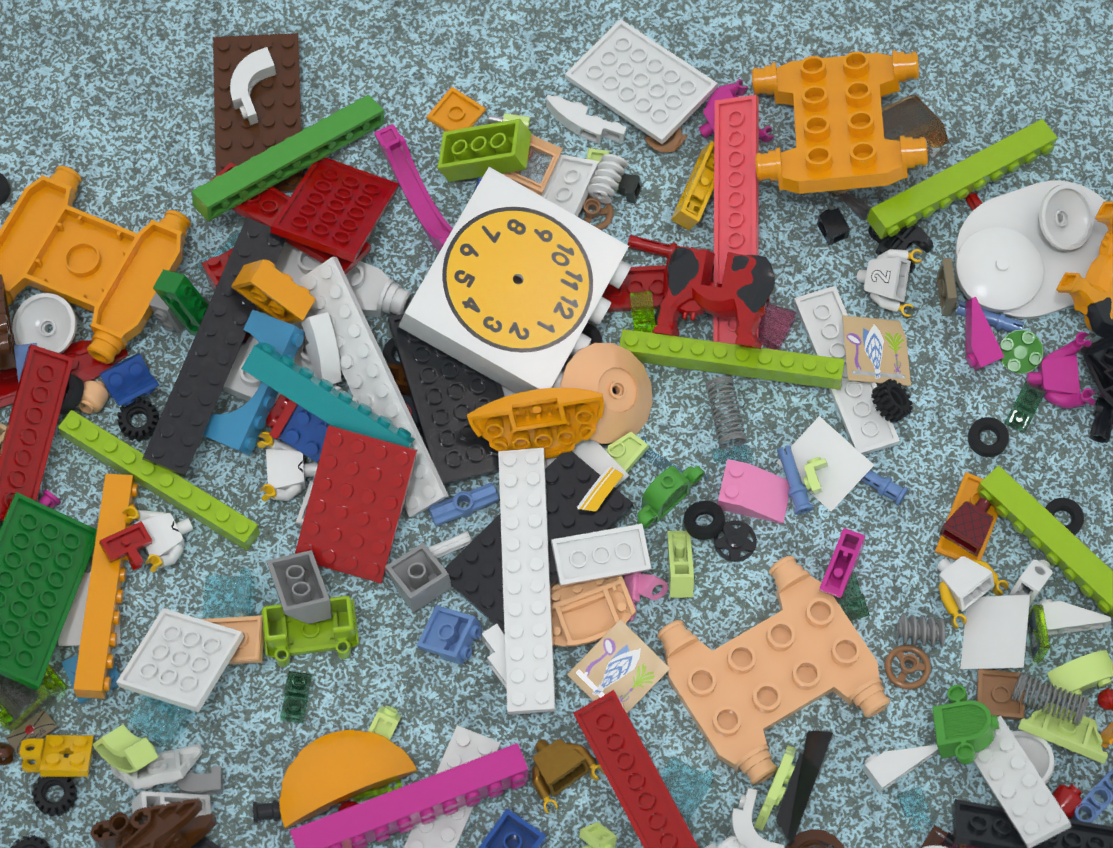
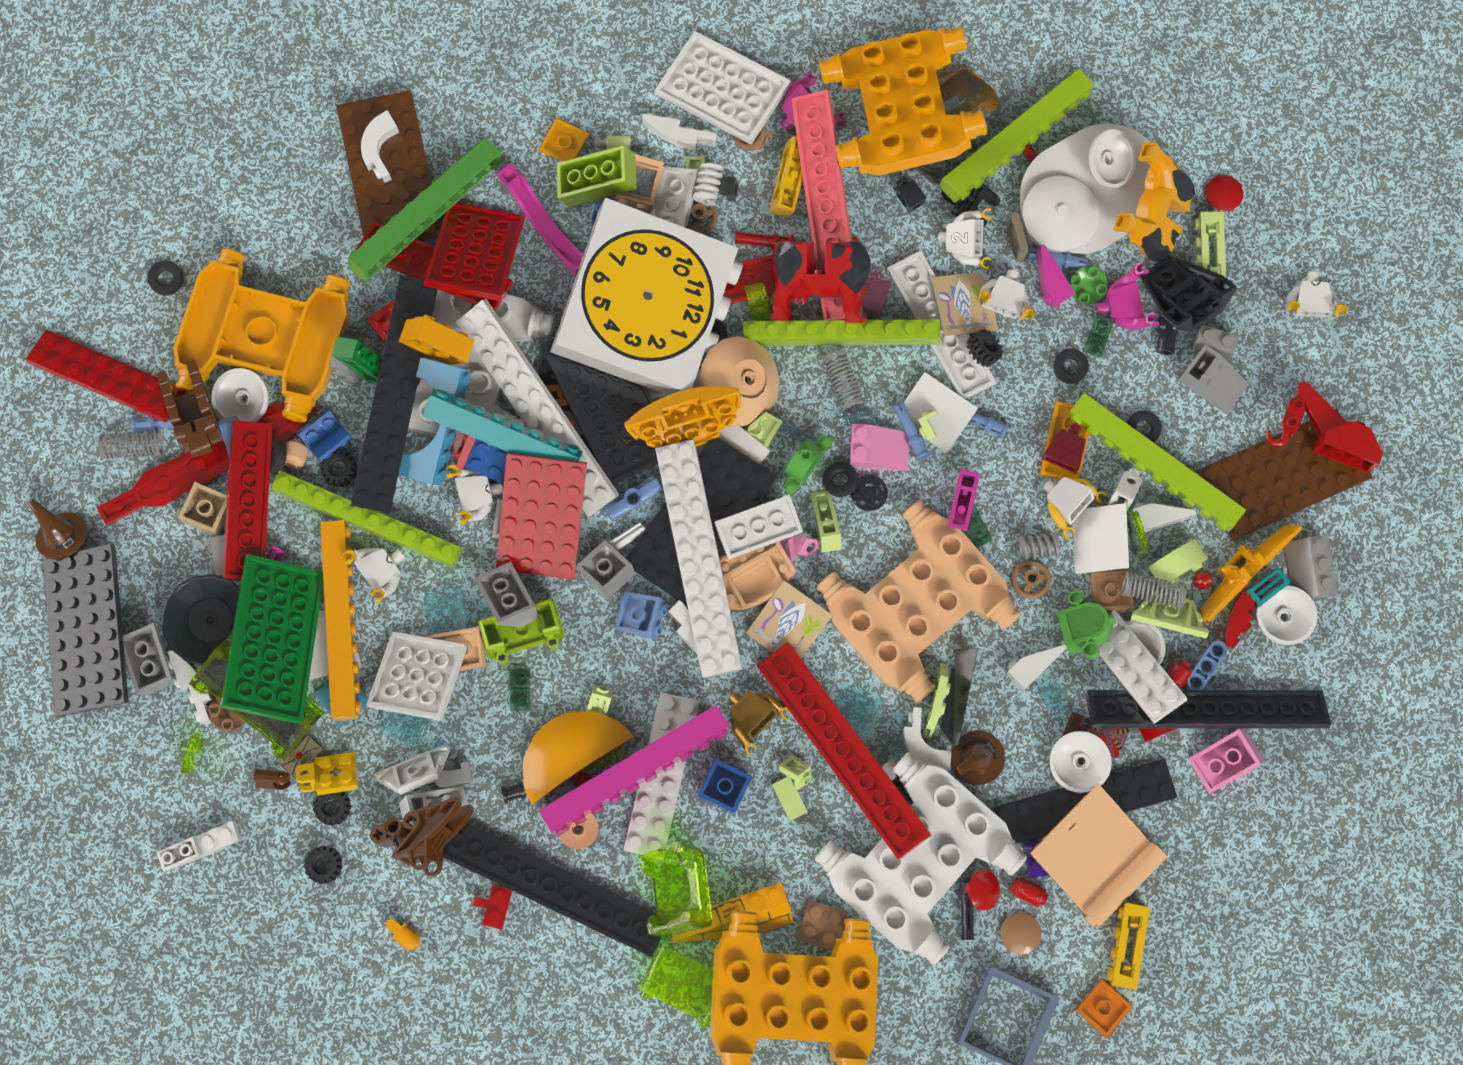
camera: 10 degrees left, 10 degrees up
(125, 750) = (385, 761): yellowish green brick -> none
(127, 543) = (351, 582): red plate -> none
(322, 347) = (488, 382): white slope -> none
(600, 489) = (748, 468): yellow sticker -> none
(925, 349) = (1006, 296): none -> white torso

